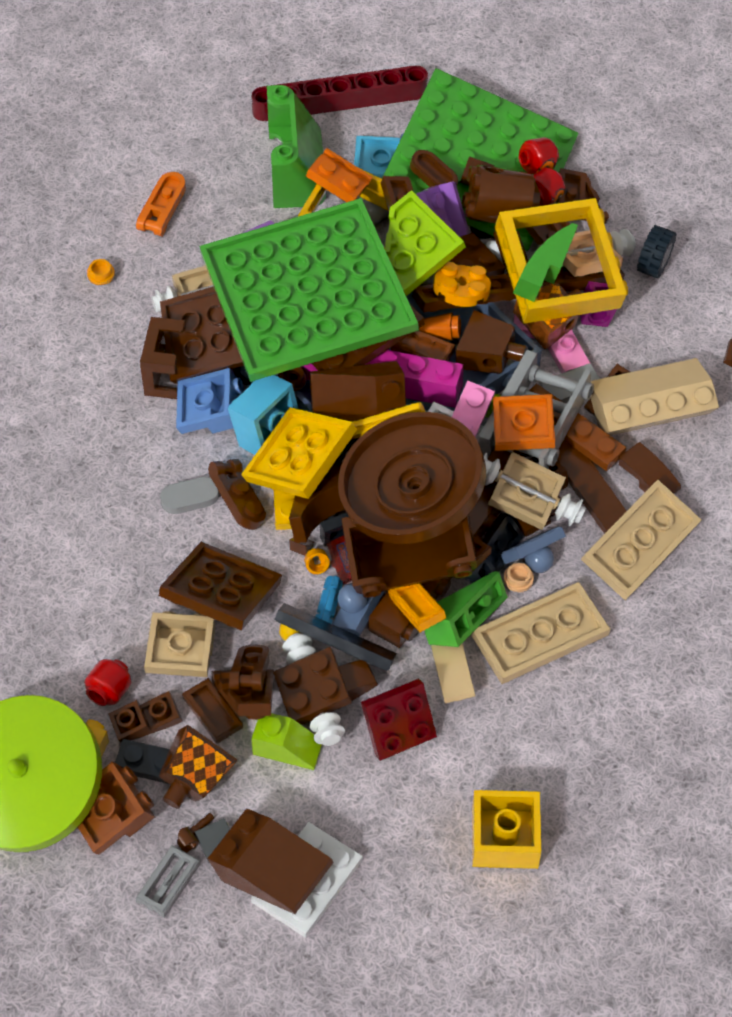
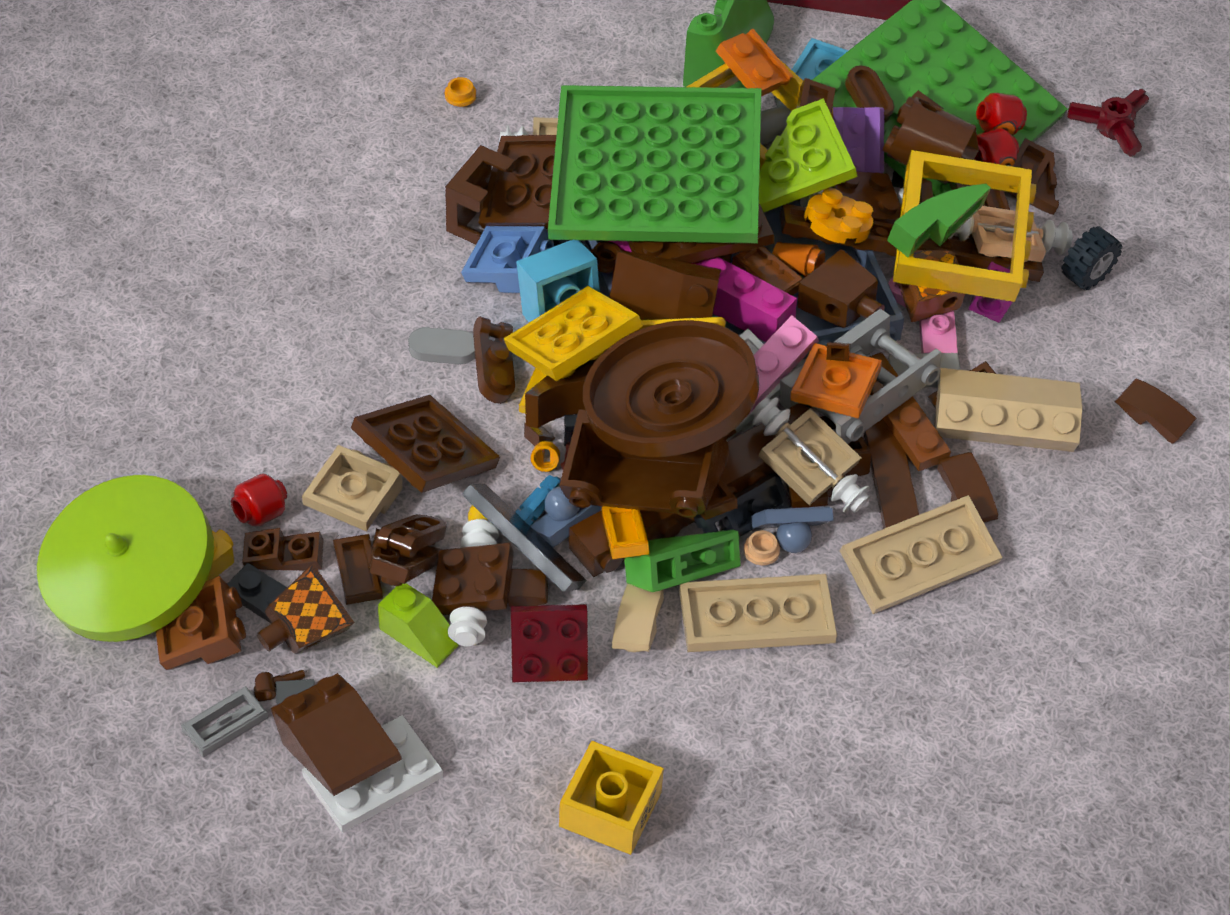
camera: 20 degrees right, 5 degrees down
(162, 203) = (560, 43): orange plate -> none
(517, 397) = (838, 351): none -> reddish brown piece
(617, 130) = (1114, 118): none -> dark red bush

